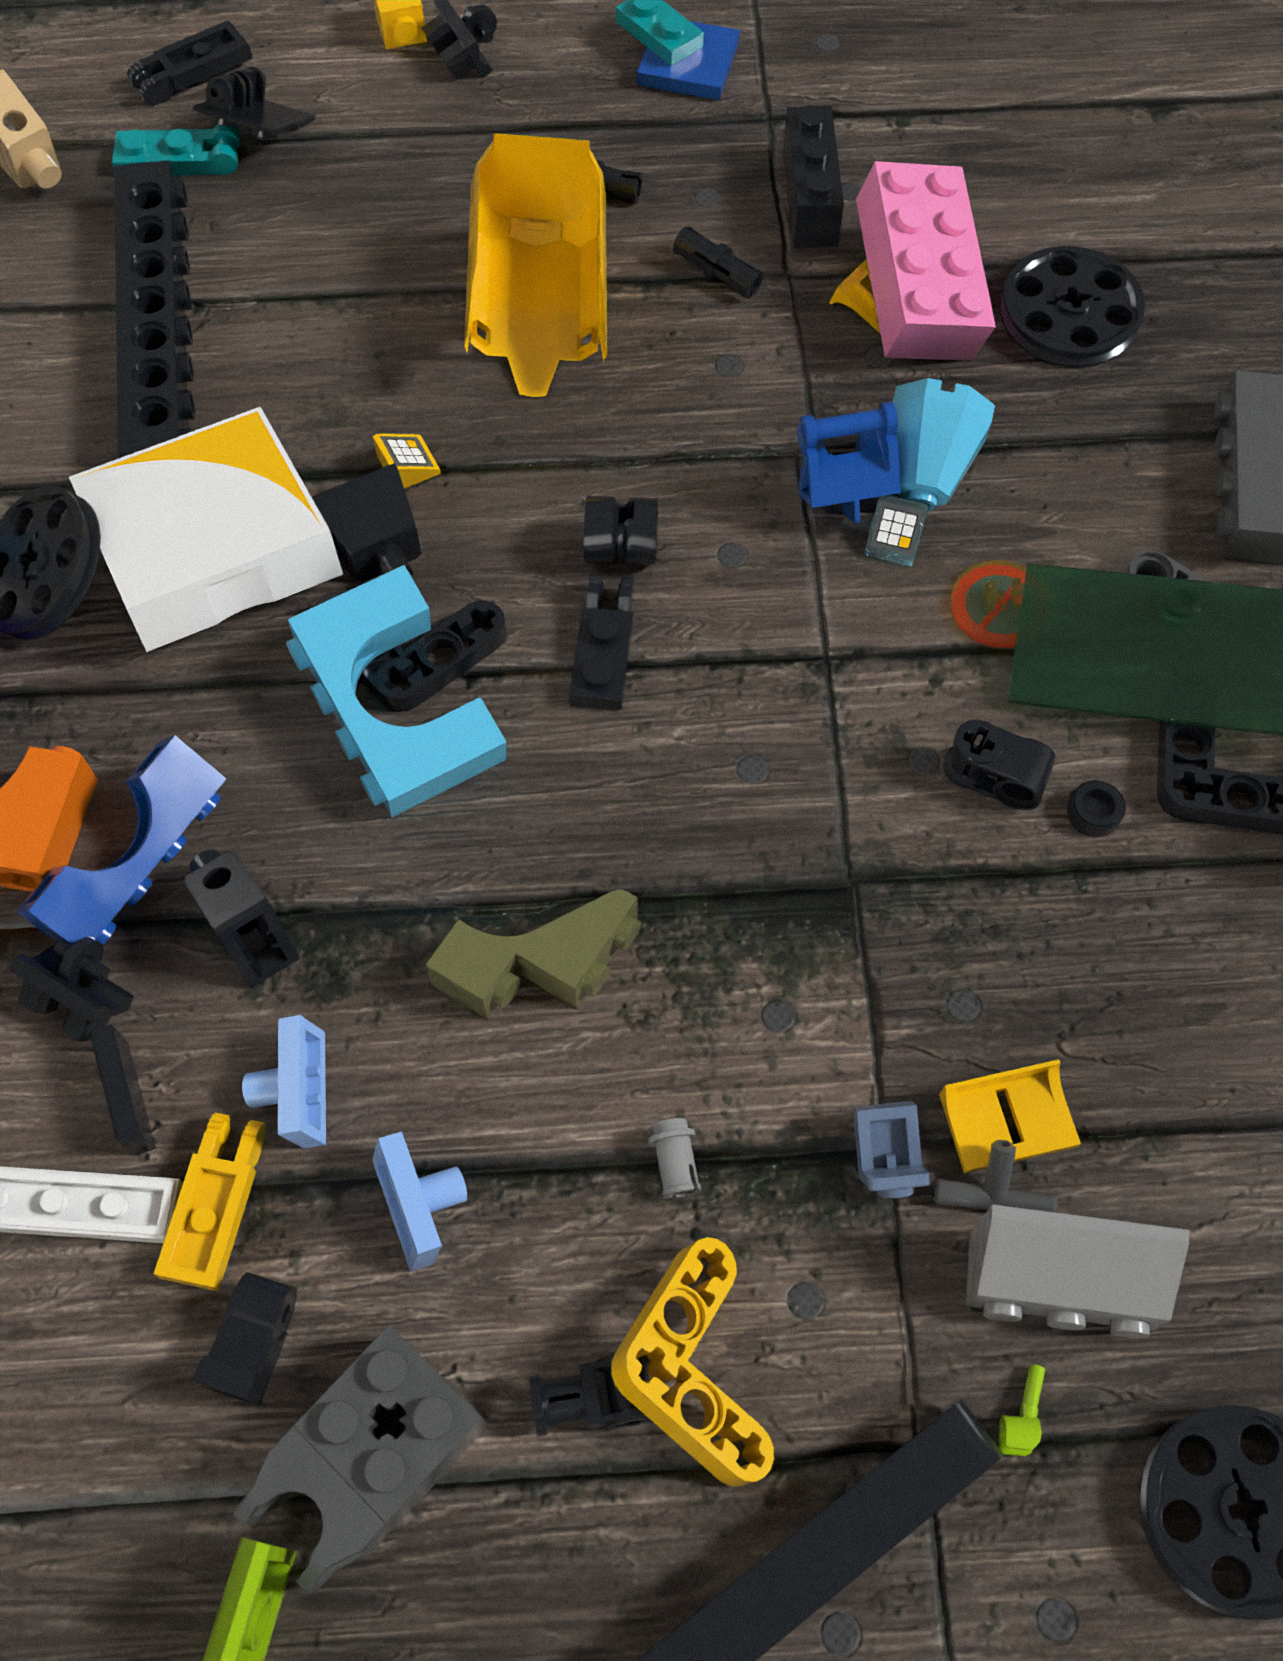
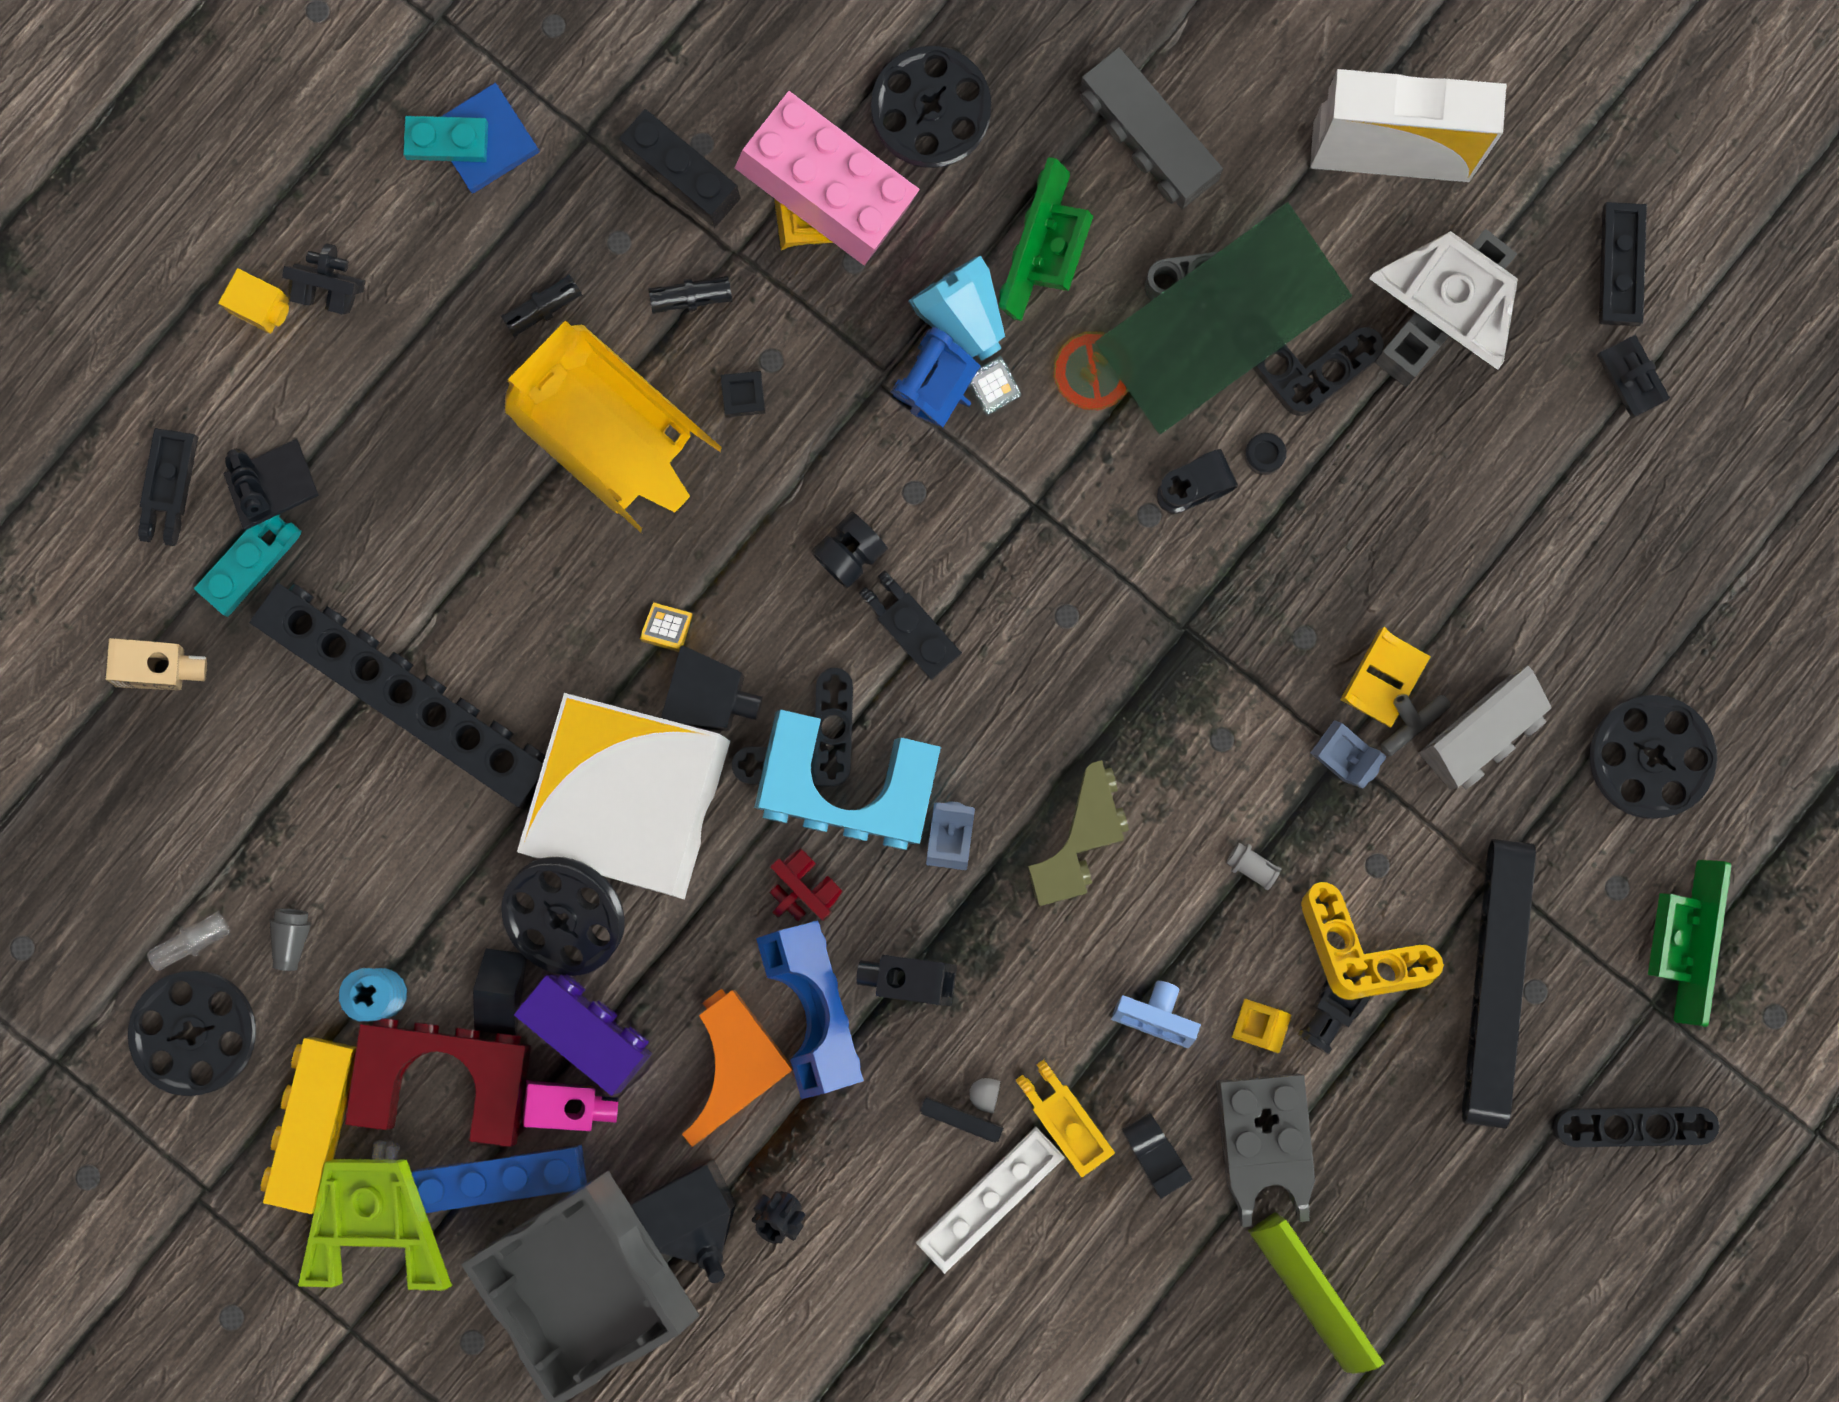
camera: 45 degrees left, 20 degrees up
(76, 980) = (874, 1100): black hips -> none
(174, 1096) = (985, 1094): none -> light grey hinge
(241, 744) = (791, 872): none -> dark red hips
(296, 1084) = (1037, 1027): light blue tile -> none
(428, 833) = (950, 835): none -> sand blue bracket
(507, 1333) = (1261, 1026): none -> yellow slope
(676, 362) = (743, 394): none -> black tile
(1023, 1433) = (1531, 823): lime hand -> none
(1064, 466) = (1048, 244): none -> green bracket

